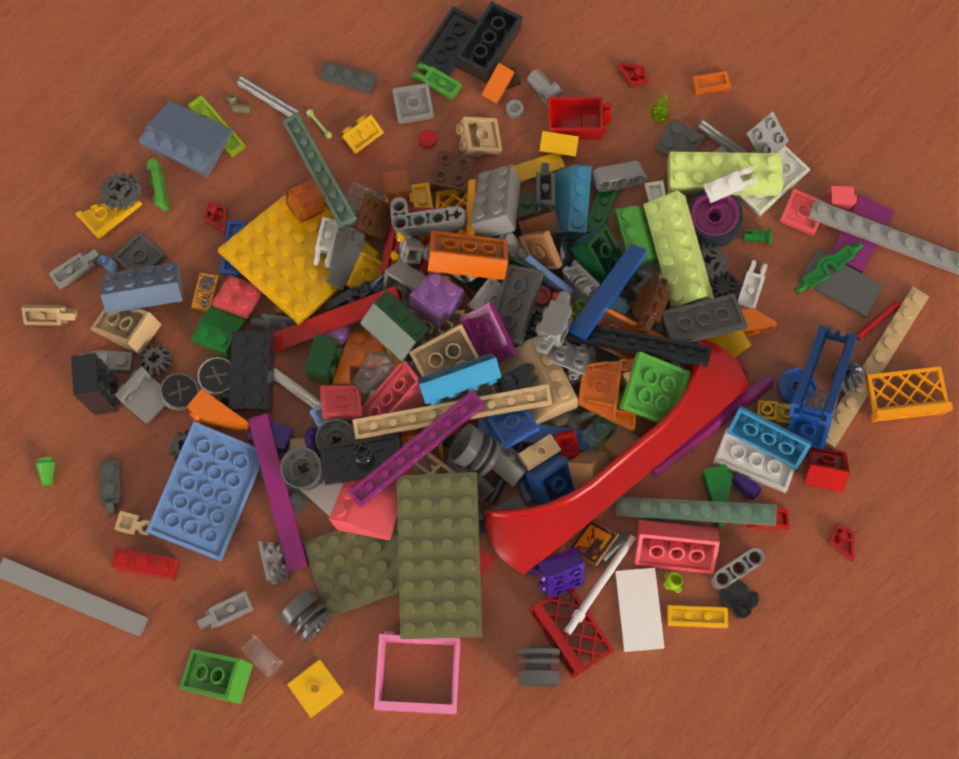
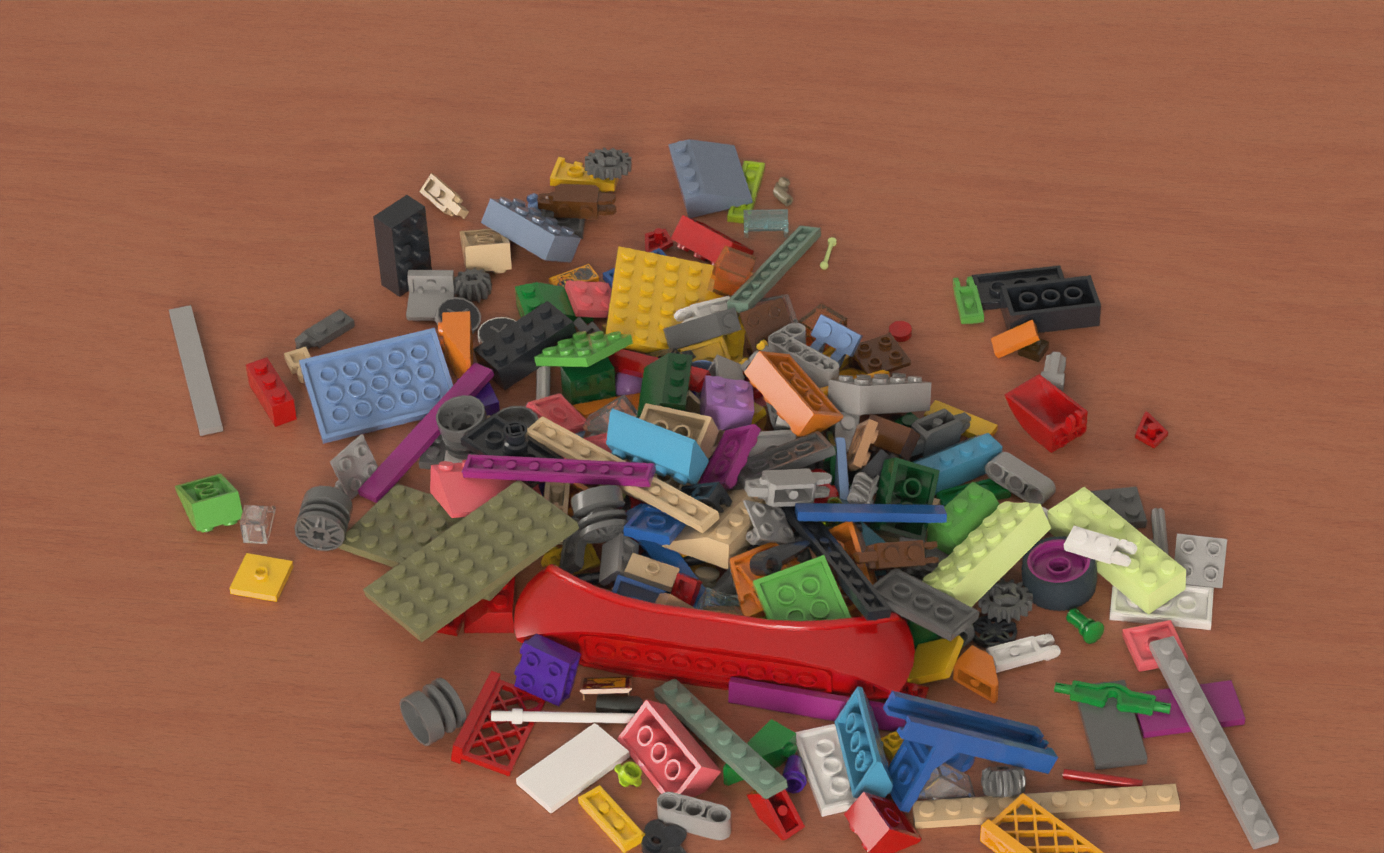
camera: 55 degrees right, 30 degrees down
(45, 468) = (297, 282): bright green cone -> none
(74, 268) = (504, 186): light grey hinge -> none
(116, 360) = (442, 259): light grey hinge -> none
(138, 237) = (577, 202): none -> reddish brown hinge
(158, 184) = (644, 188): bright green hinge -> none
(226, 611) = (278, 472): light grey hinge -> none
(251, 186) = (704, 240): none -> red slope
(262, 139) = (766, 221): none -> clear light blue hinge
(266, 96) = (813, 202): light grey axle -> none
(304, 345) = (583, 349): none -> bright green plate
(348, 77) = (898, 243): dark grey plate -> none
(362, 133) = (850, 282): yellow bracket -> none
(391, 637) = (323, 607): bright pink window -> none
(413, 103) = (923, 298): light grey plate -> none
(422, 184) = (836, 335): none -> medium blue plate
(479, 136) = (943, 359): tan plate -> none
(514, 109) = (1005, 371): light grey tile -> none
(559, 143) = (1004, 418): yellow hinge -> none
(609, 376) = (773, 559): none -> black piece
(660, 110) = (1133, 471): clear neon green cone -> none
(711, 82) = (1214, 494): orange tile -> none
(842, 197) = (1206, 663): coral brick -> none

